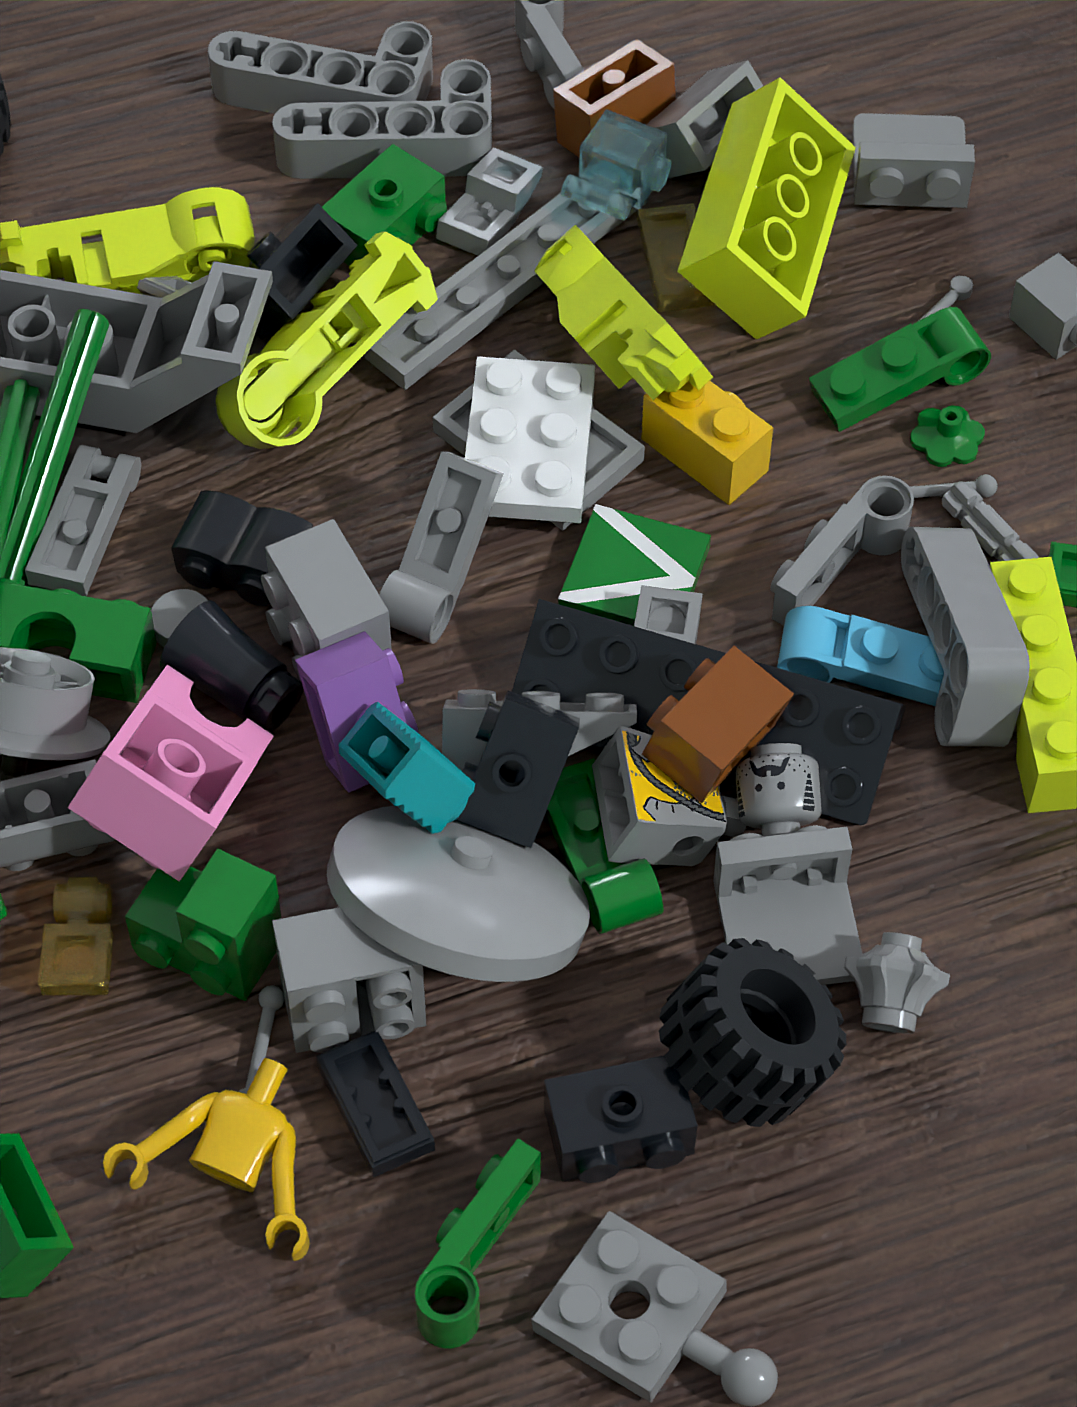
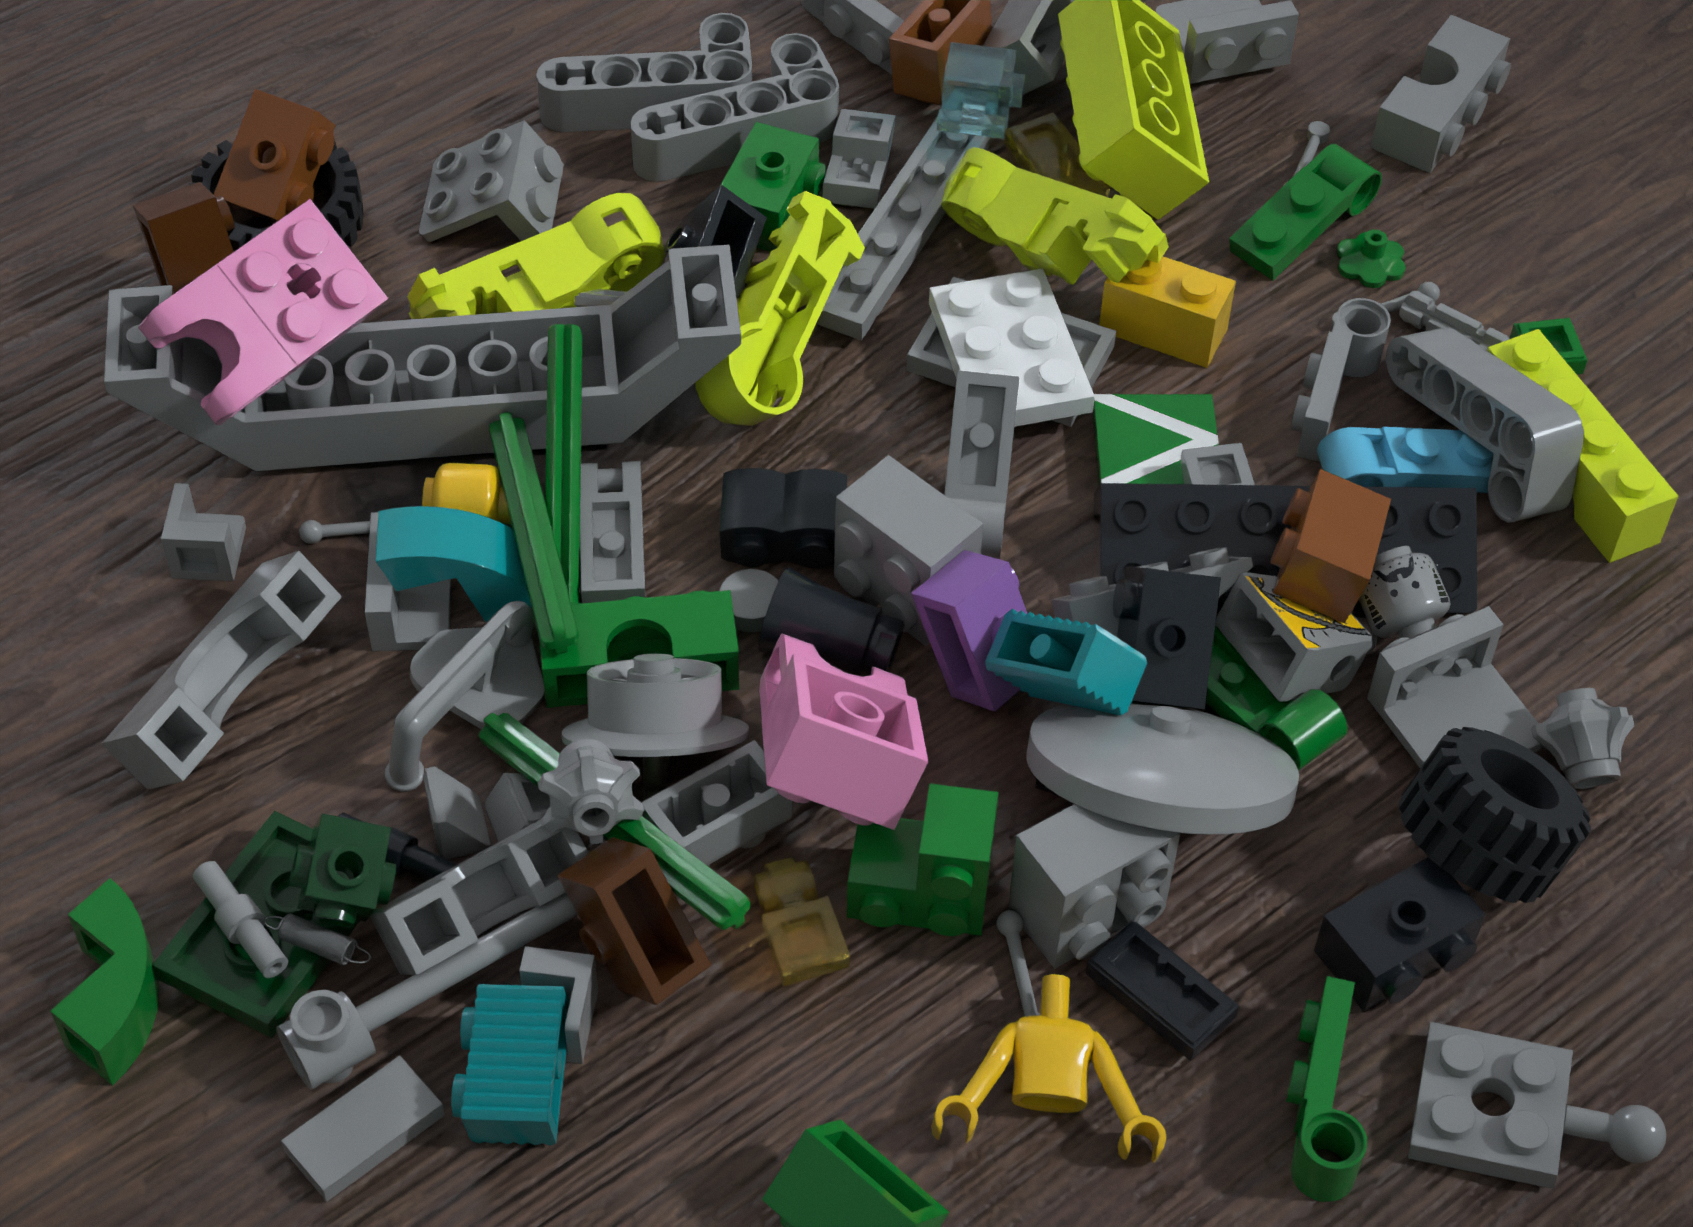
camera: 20 degrees left, 5 degrees down
(136, 141) = (499, 175): none -> light grey bracket

